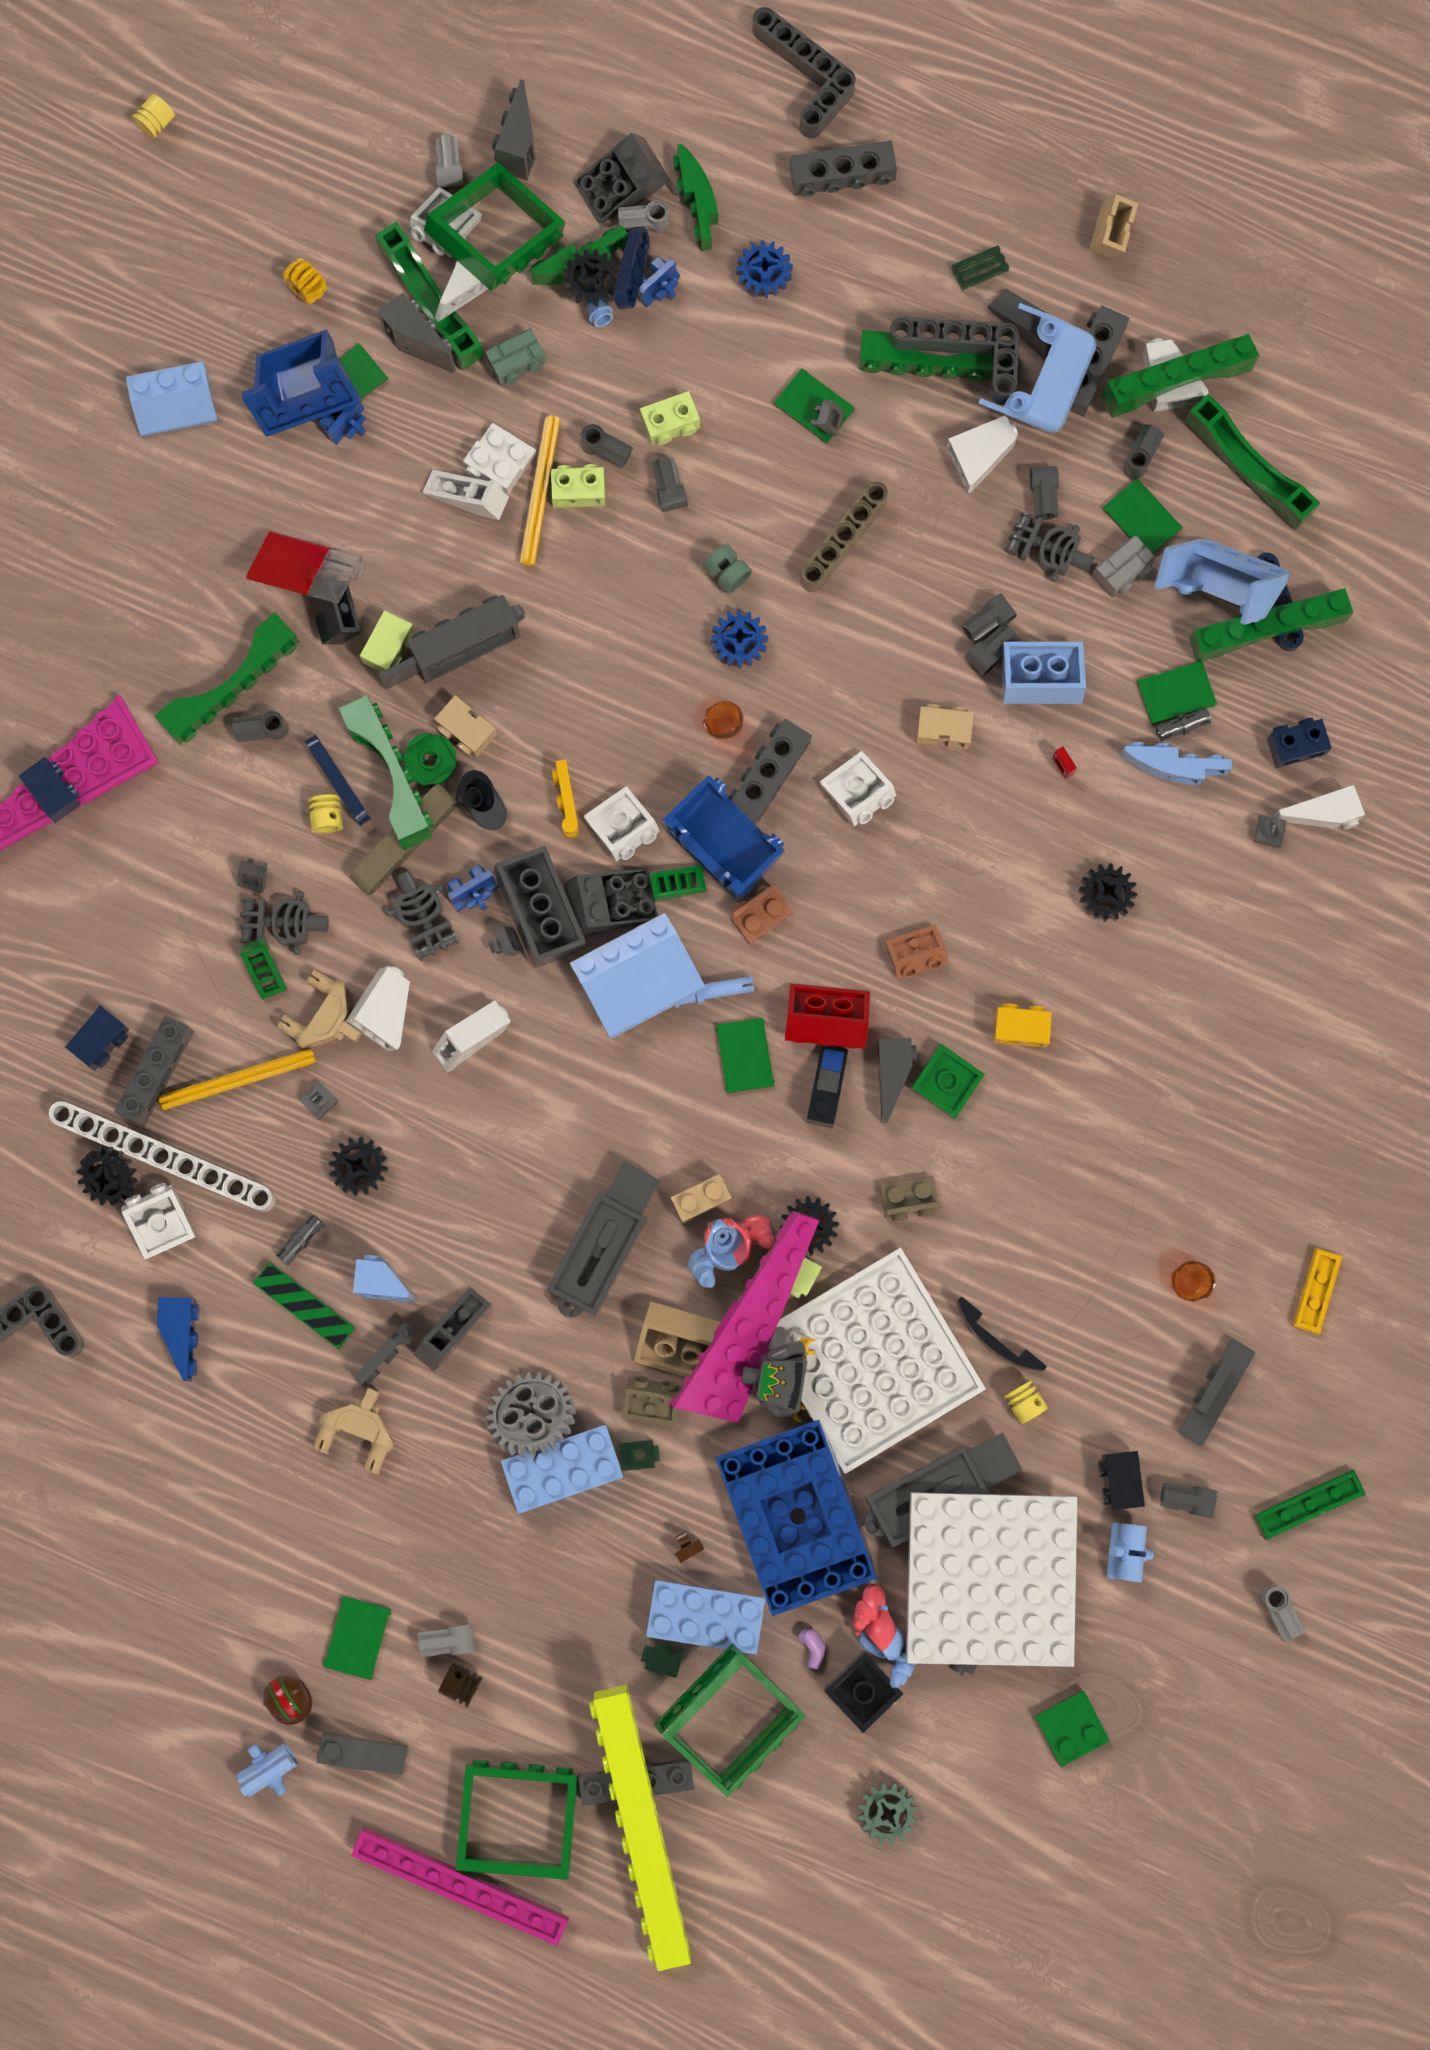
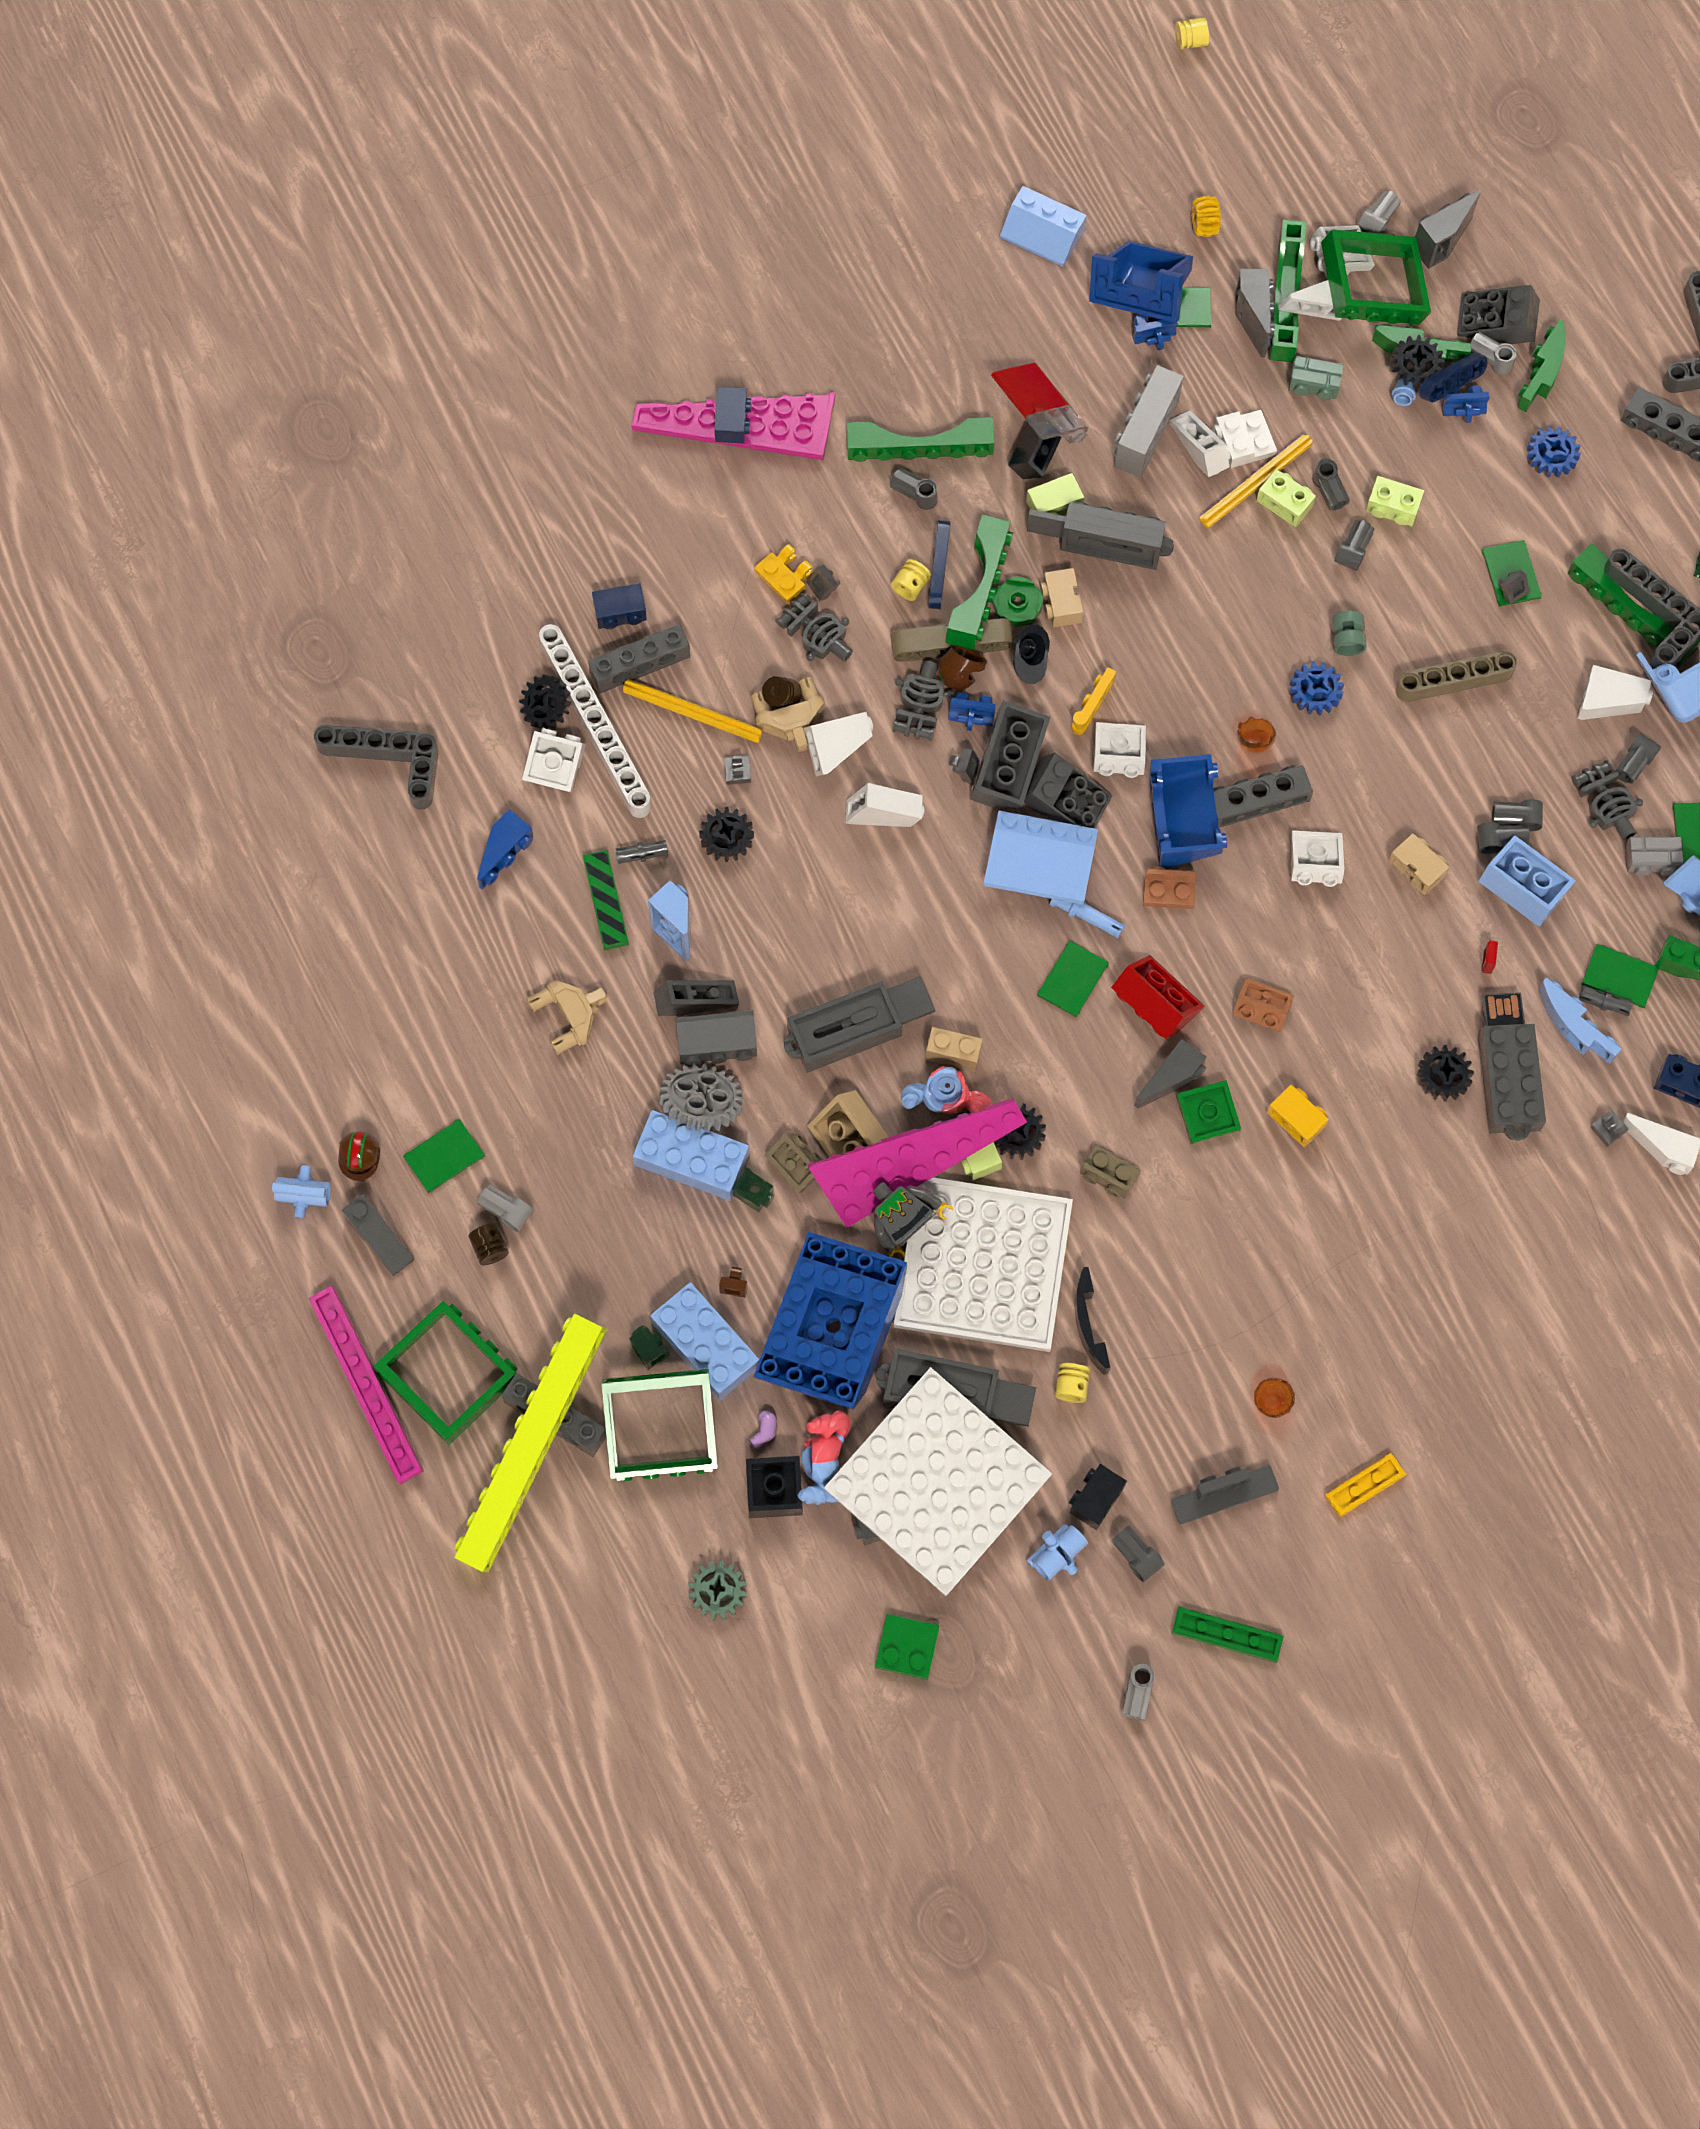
camera: 40 degrees right, 10 degrees down
(211, 899) = (780, 577): none -> yellow plate
(256, 947) = (769, 638): green slope -> none
(301, 1004) = (781, 691): none -> dark brown piece
(386, 1353) = (633, 975): dark grey hinge -> none
(407, 510) = (1147, 421): none -> light grey brick
(435, 866) = (956, 667): none -> reddish brown helmet
(501, 1353) = (716, 1037): none -> dark grey slope
(676, 873) = (1122, 809): green slope -> none
(827, 1086) = (1113, 1046): black slope -> none
(1155, 845) = (1510, 1068): none -> dark grey piece

